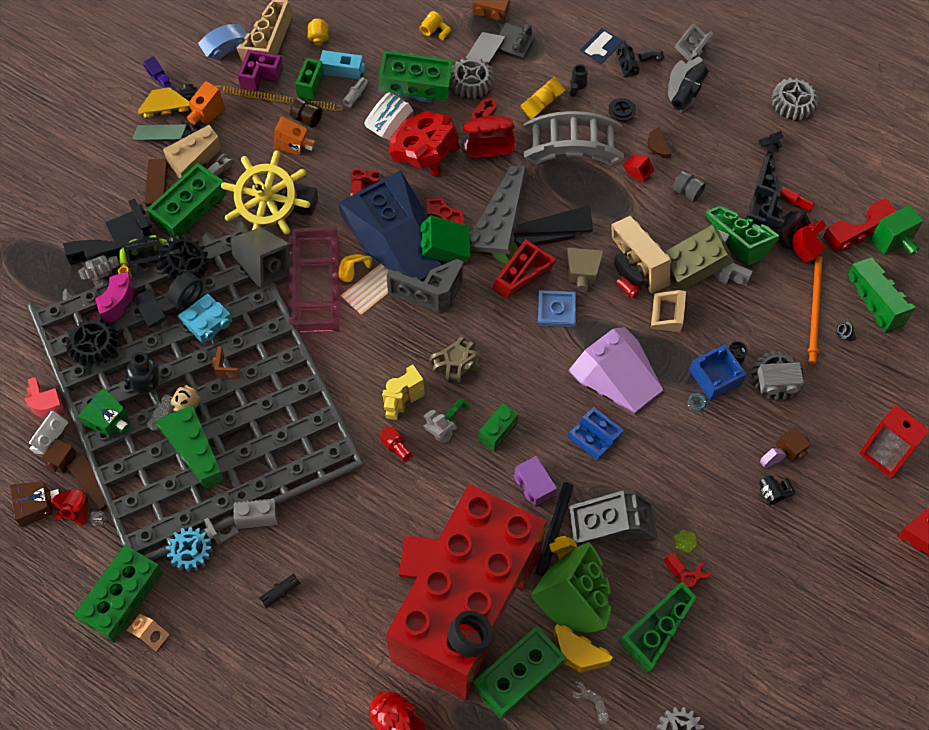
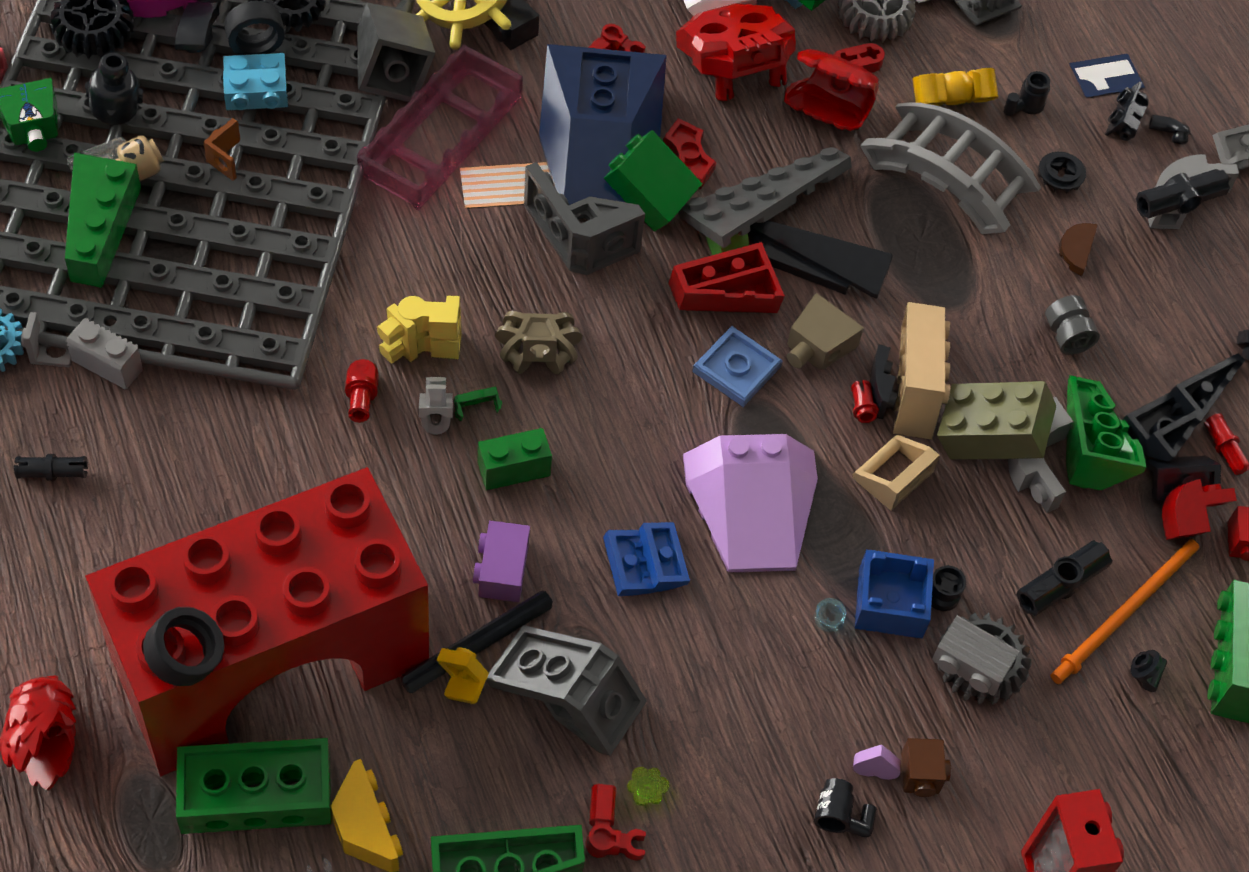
camera: 30 degrees right, 5 degrees down
(346, 268) = (489, 141): yellow piece -> none
(576, 591) = (426, 737): bright green brick -> none
(639, 167) = (1019, 258): red brick -> none
(782, 304) = (1051, 587): none -> black piece

